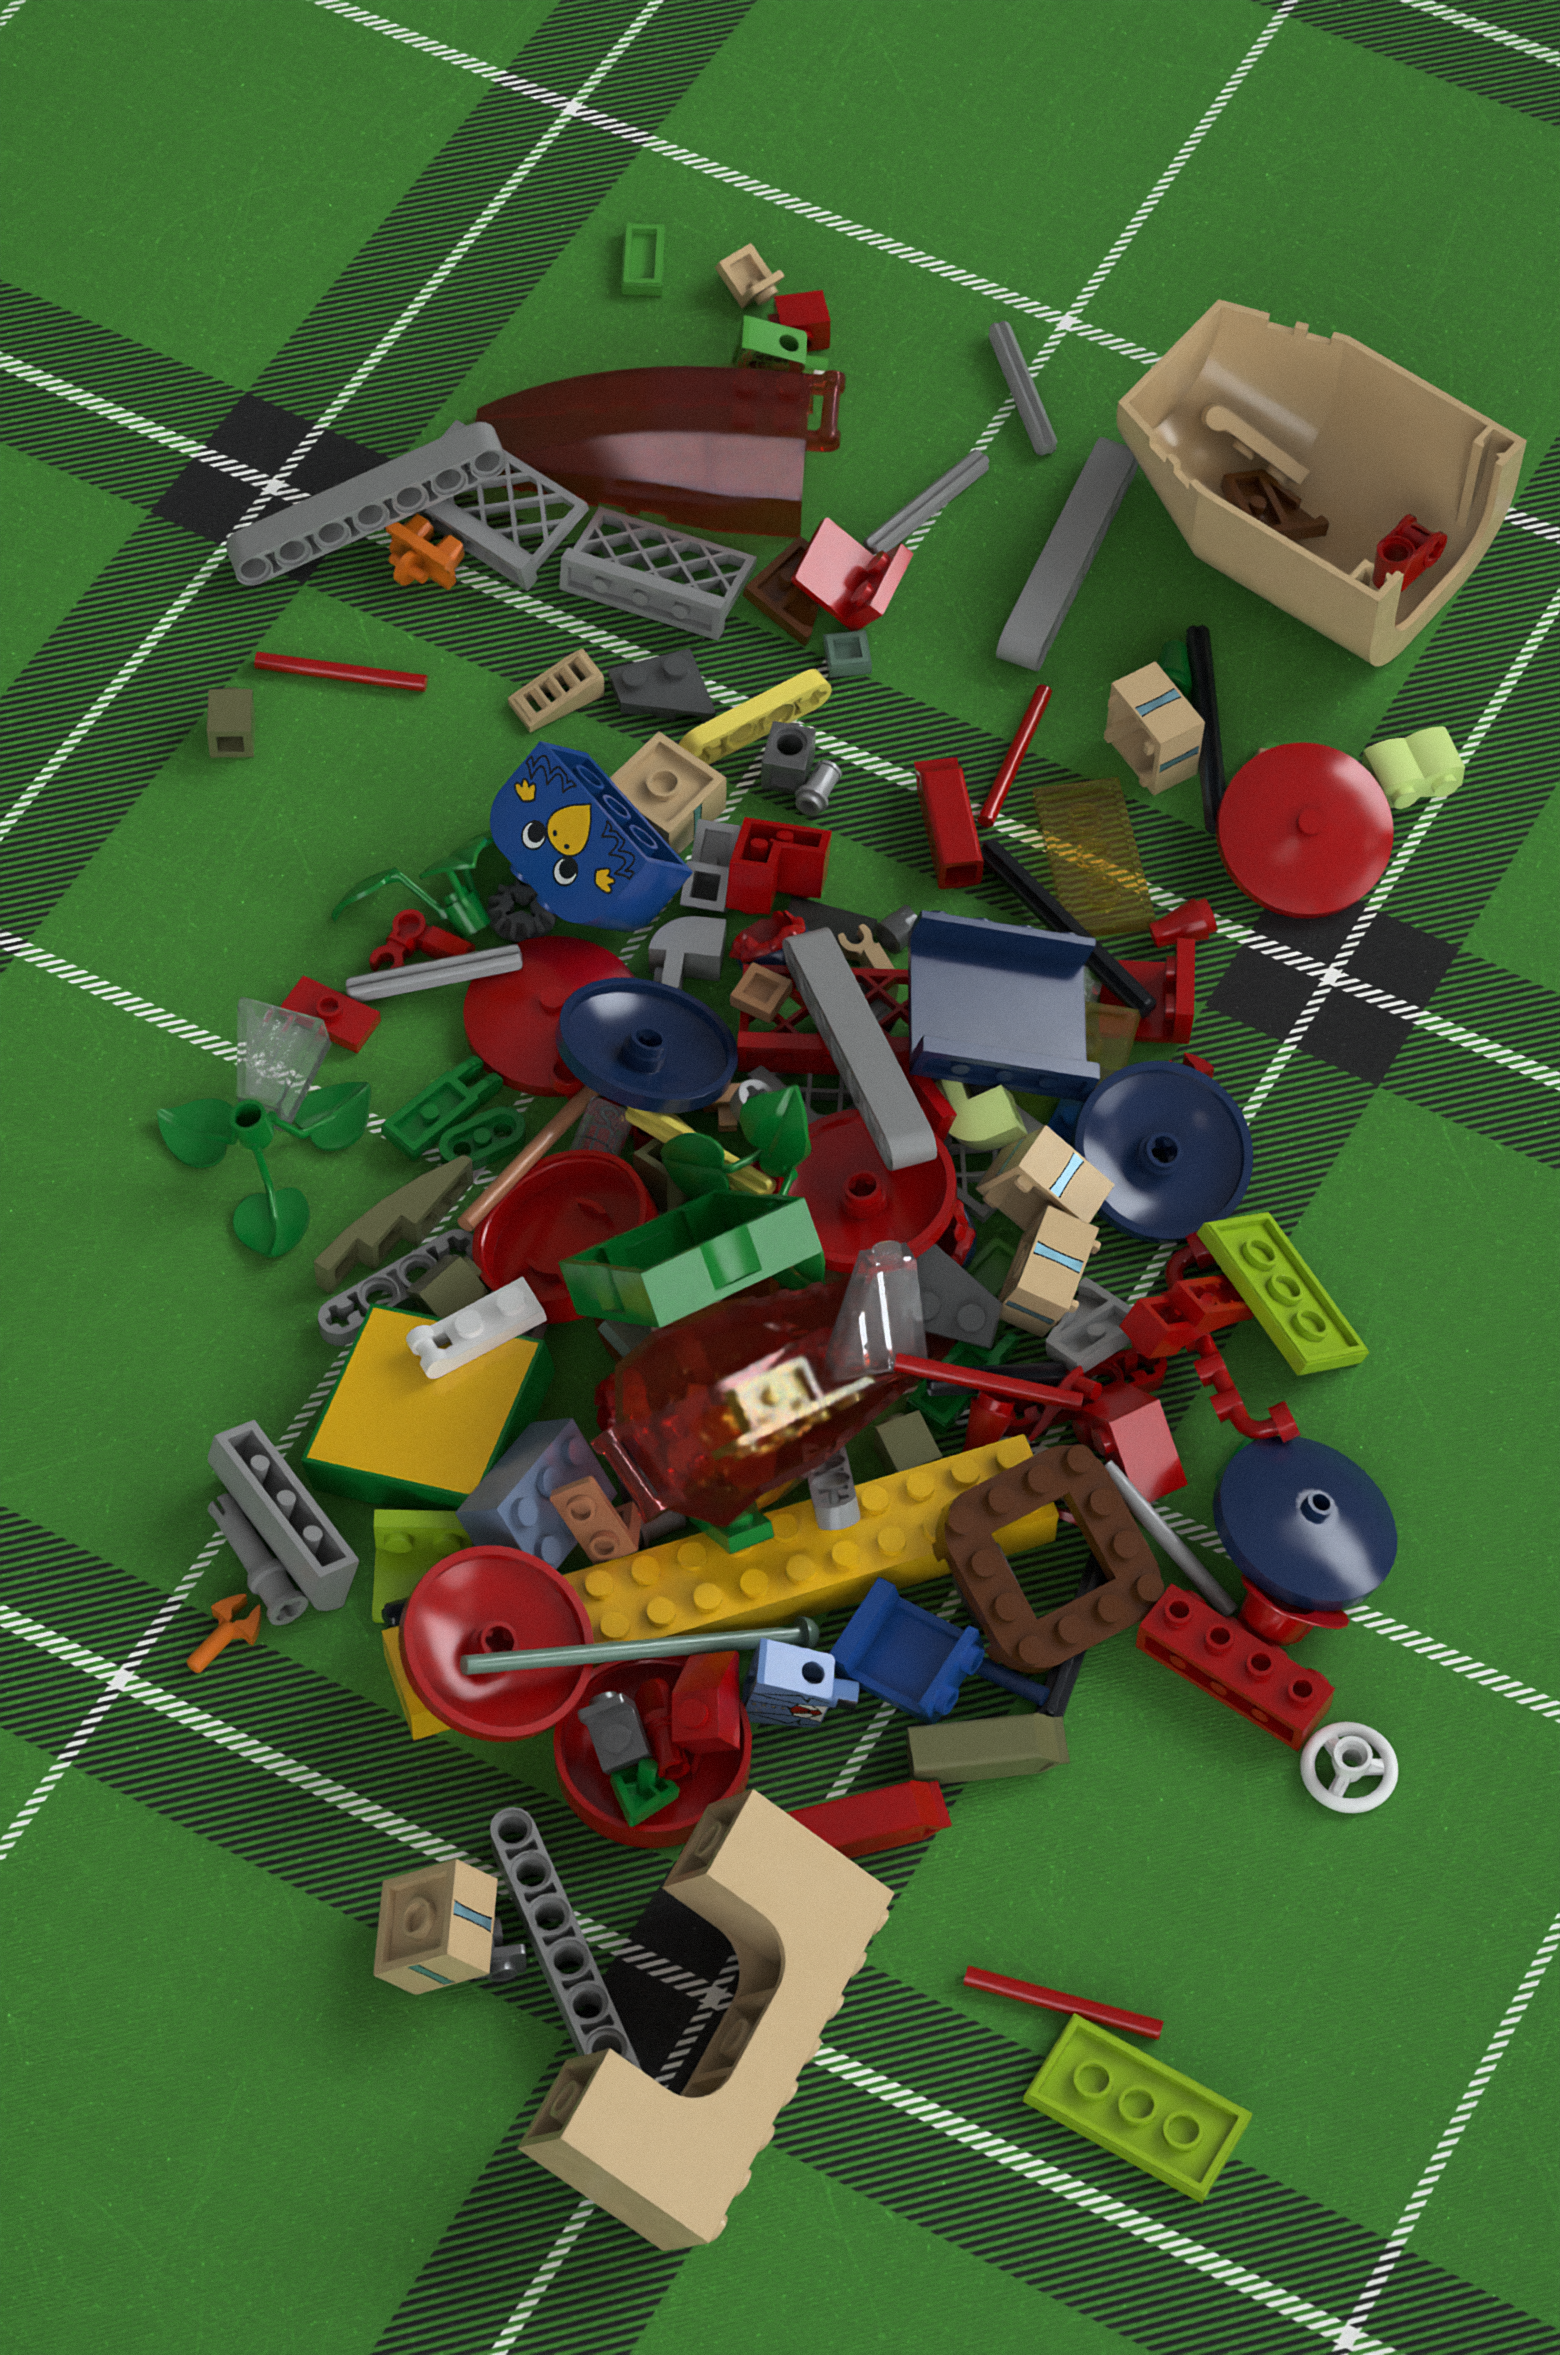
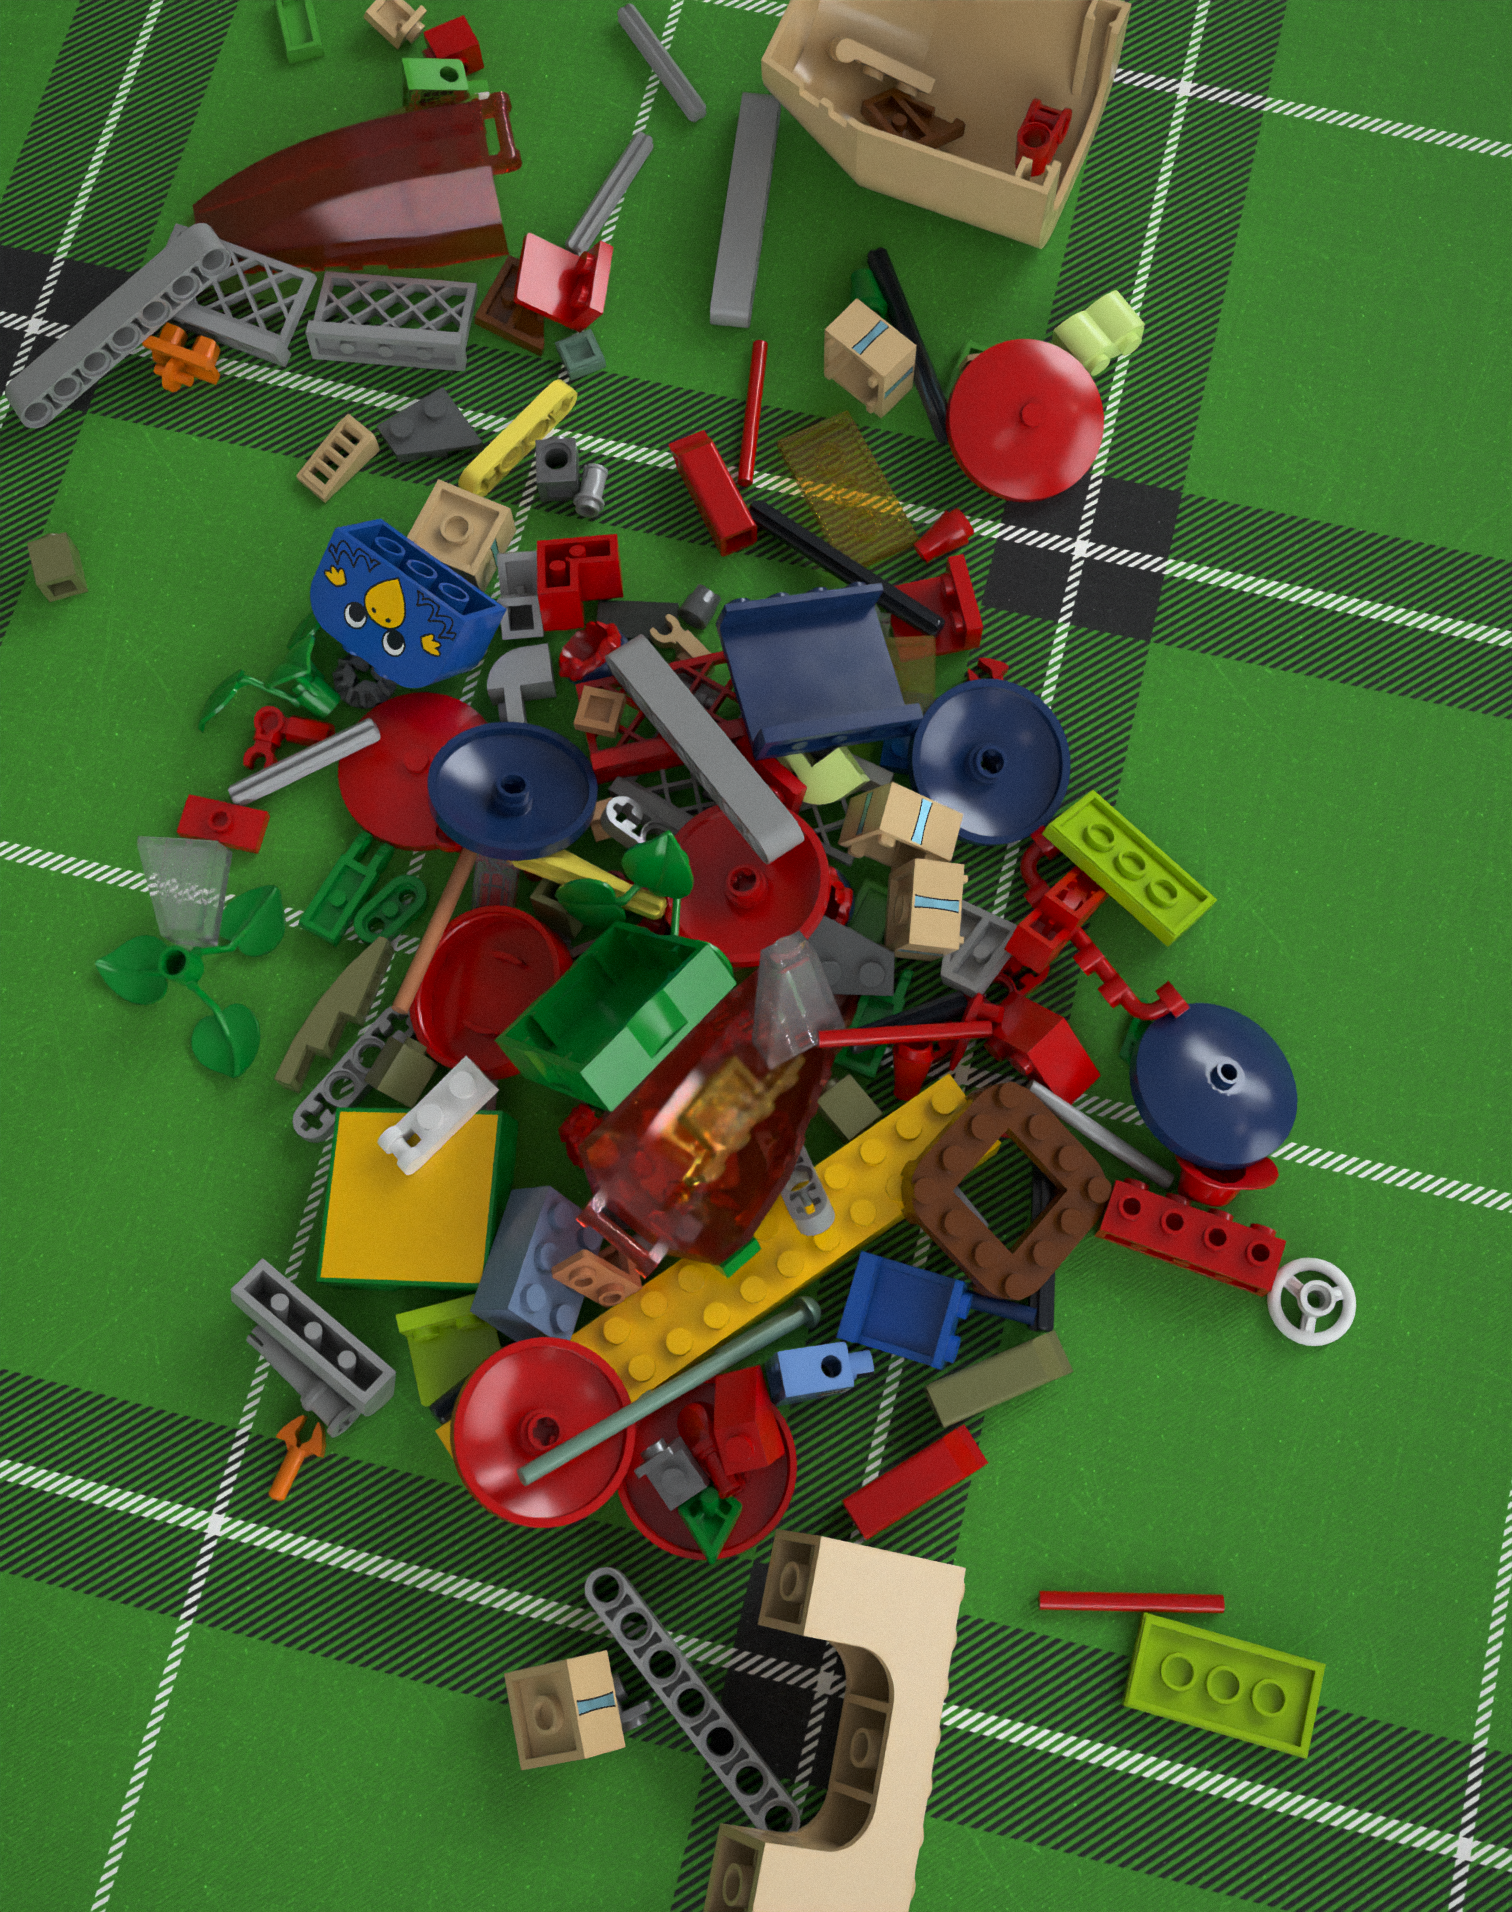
camera: 10 degrees left, 15 degrees up
(341, 671) = (141, 489): red bar -> none

